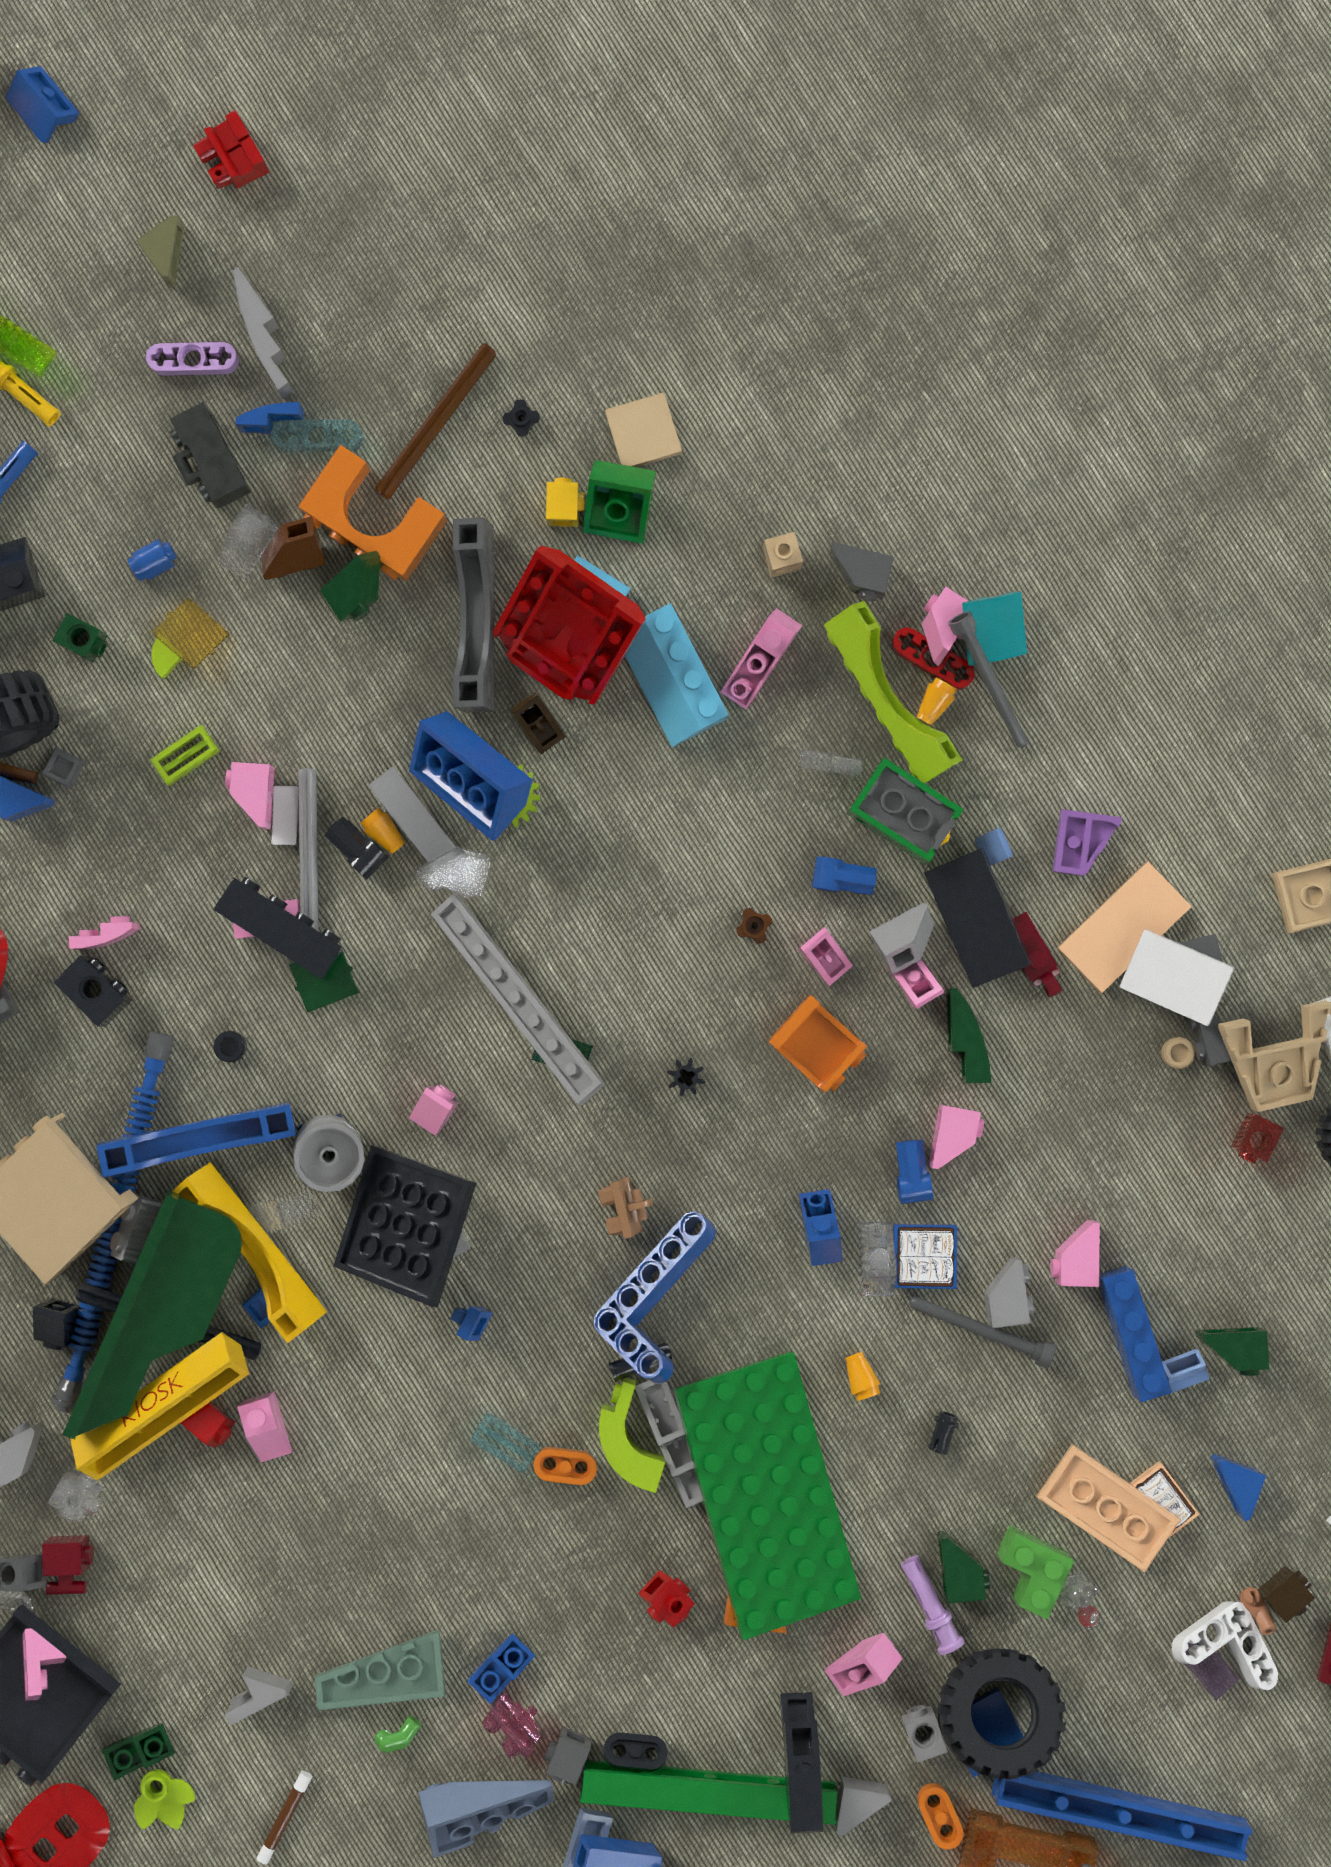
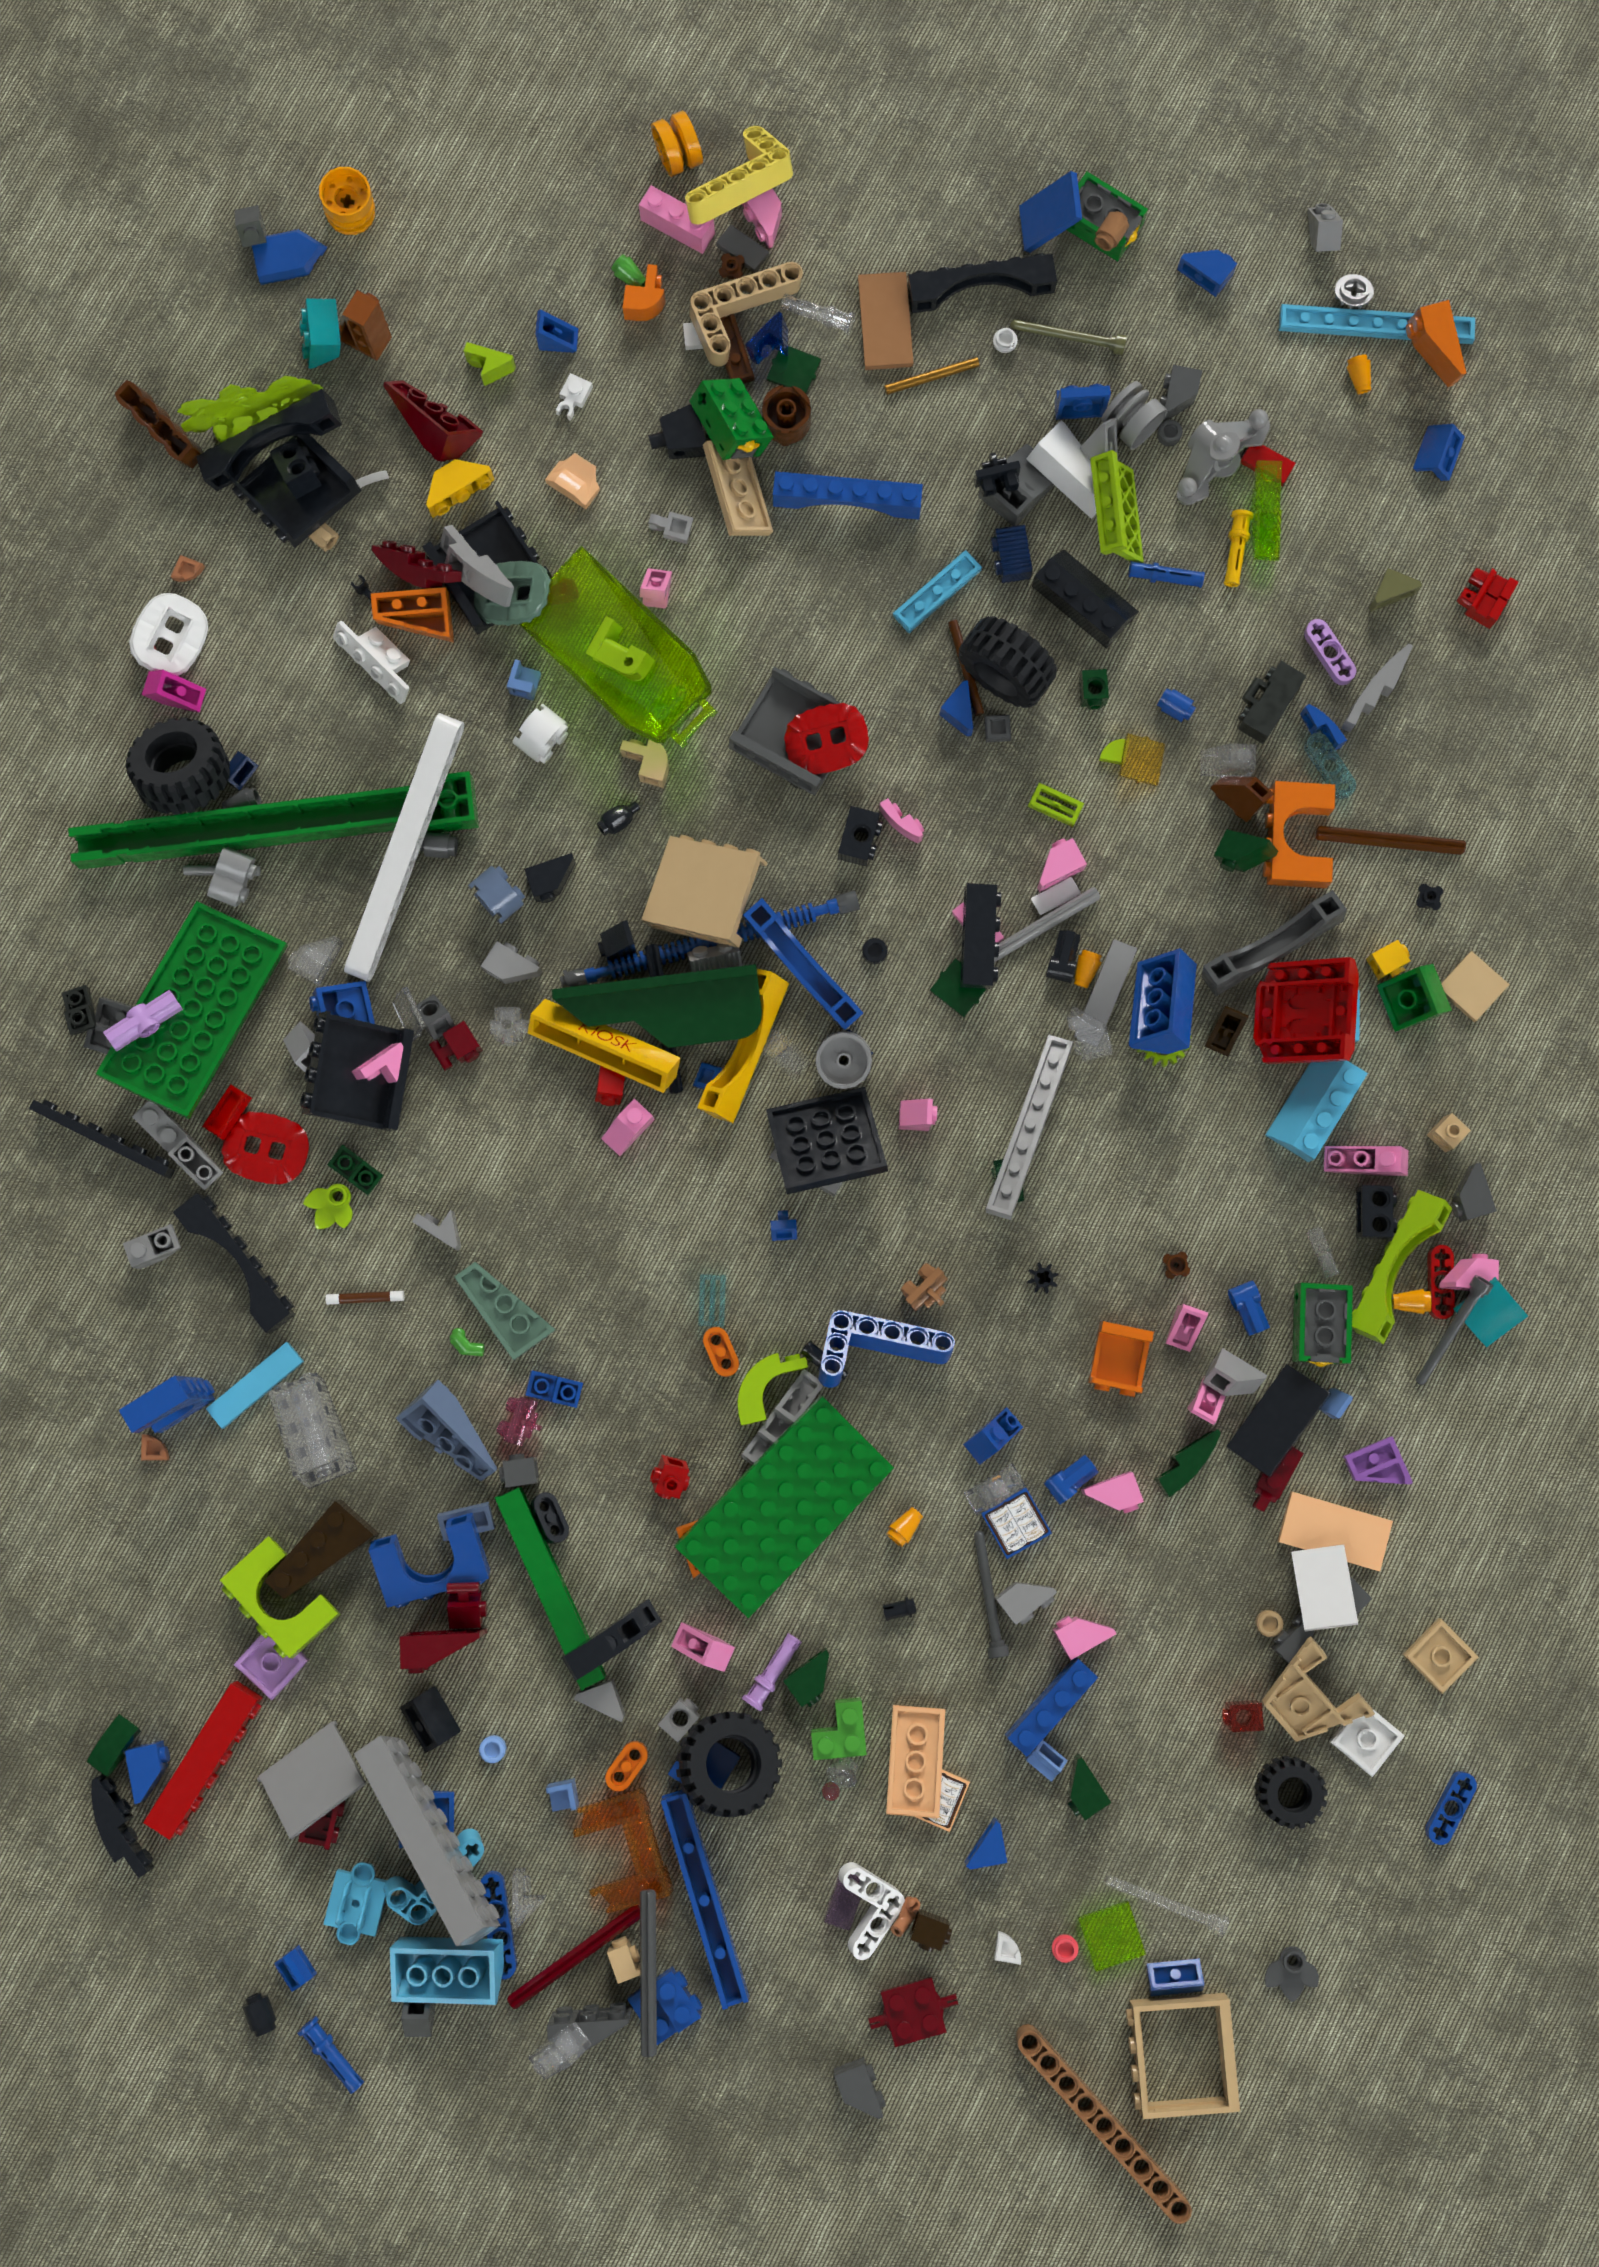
camera: 65 degrees right, 5 degrees down
(816, 690) = (1367, 1211): none -> black brick

